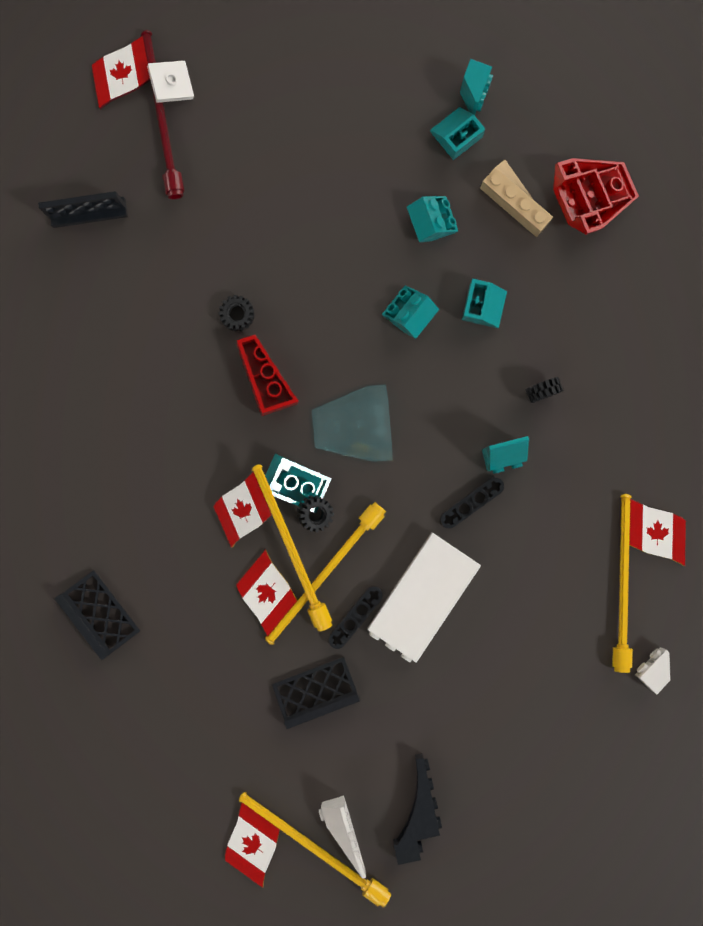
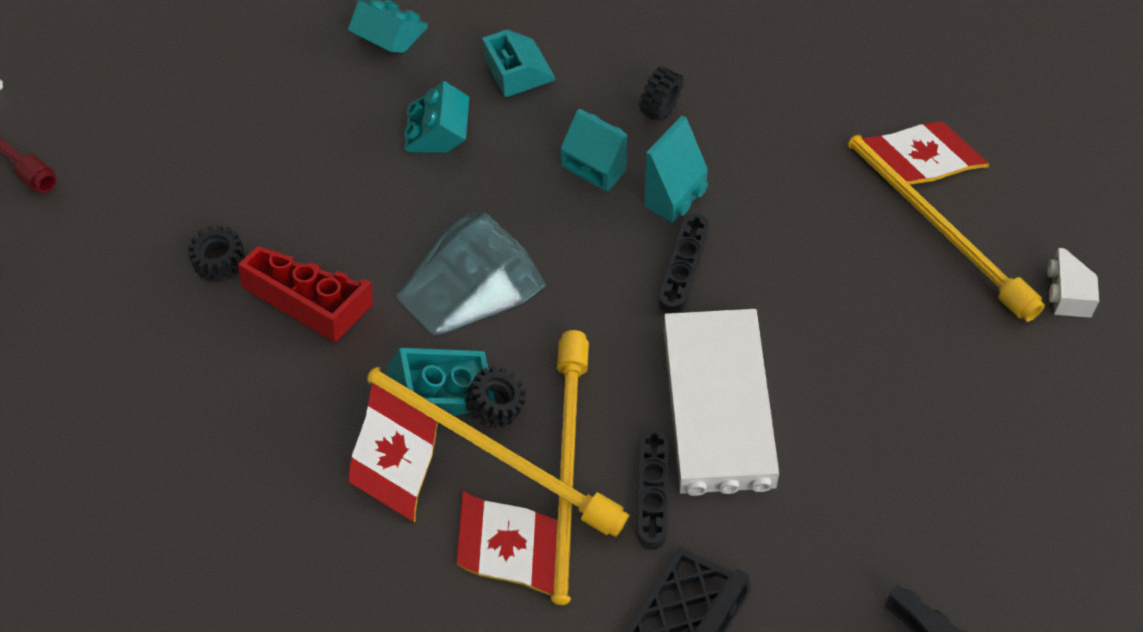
camera: 35 degrees left, 30 degrees down
(477, 401) = (594, 150): none -> teal slope

